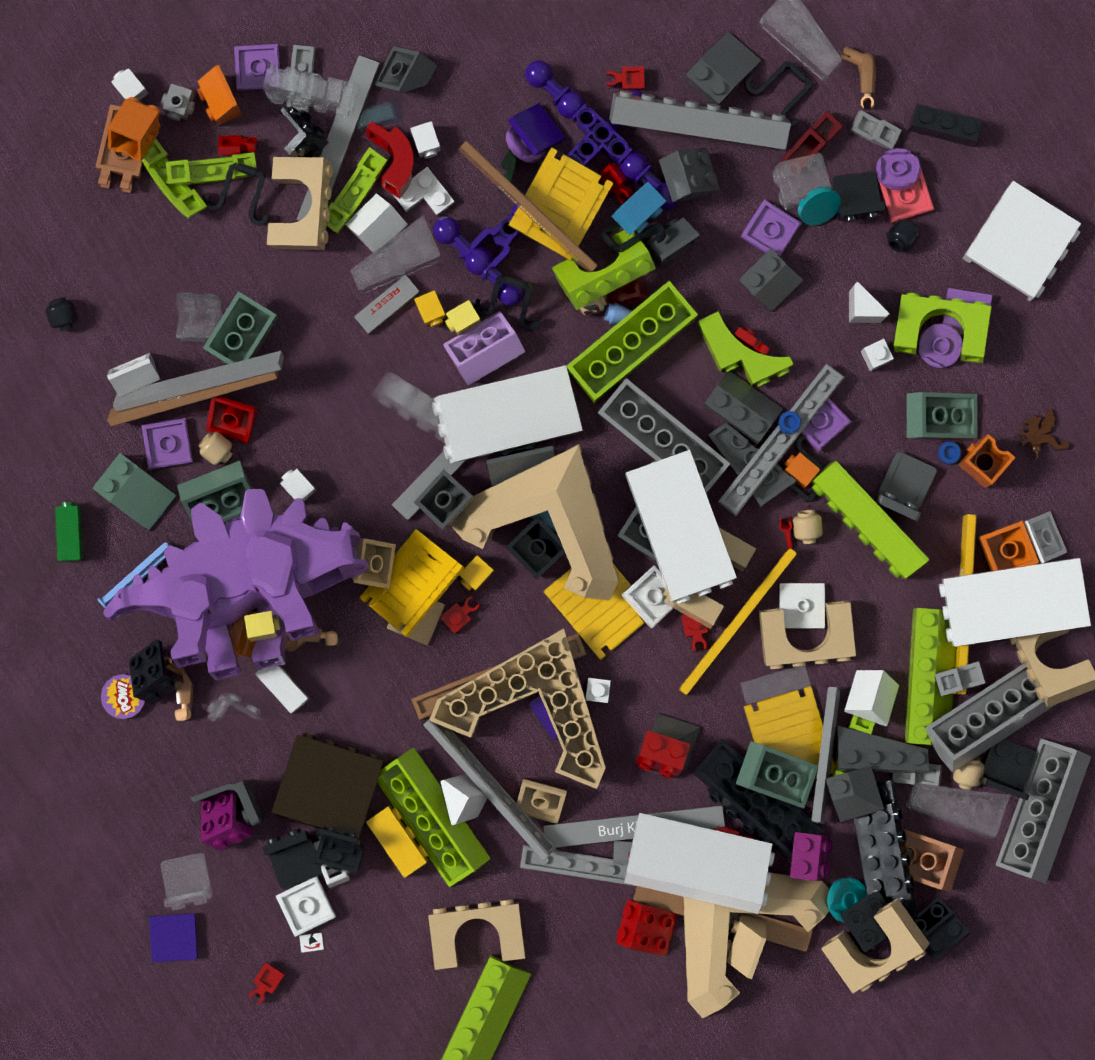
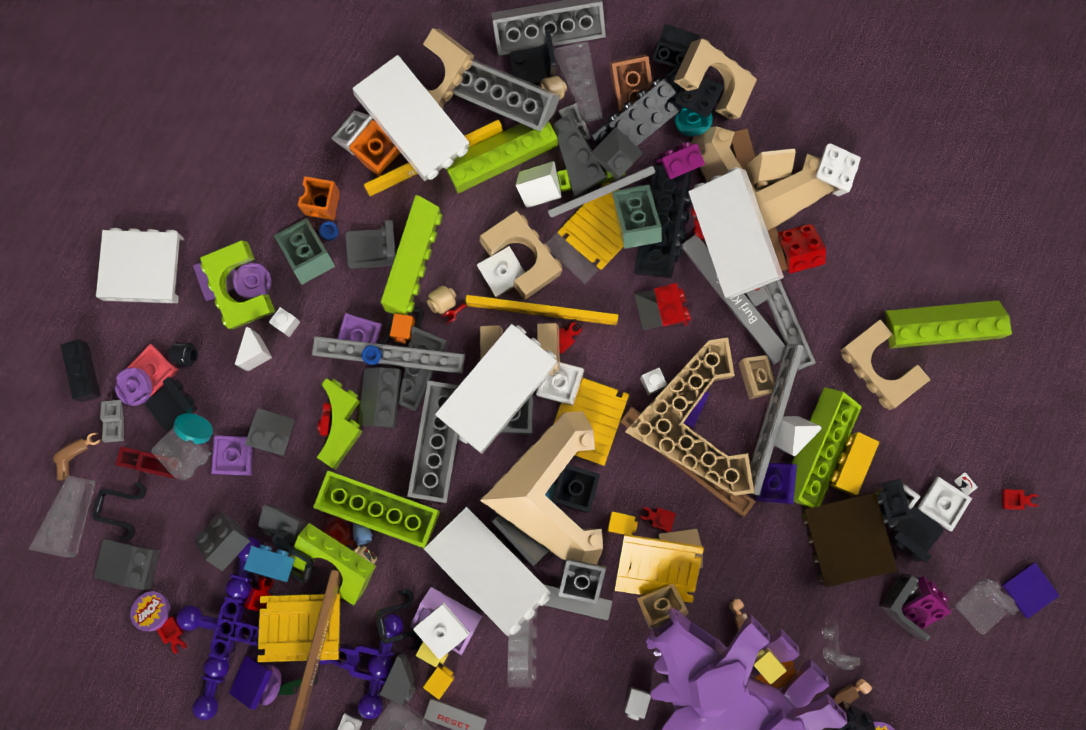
camera: 115 degrees left, 5 degrees down
(283, 687) = (796, 618): white brick -> none
(423, 751) = (778, 484): none -> dark purple tile
(452, 271) = (400, 681): none -> dark grey slope
(477, 337) = (441, 631): none -> white plate
(662, 69) = (150, 611): none -> tile
(699, 120) = (174, 559): light grey brick -> none
(706, 1015) = (838, 168): none -> white bracket
(960, 678) = (489, 128): light grey slope -> none
(1037, 436) = (281, 178): reddish brown piece -> none

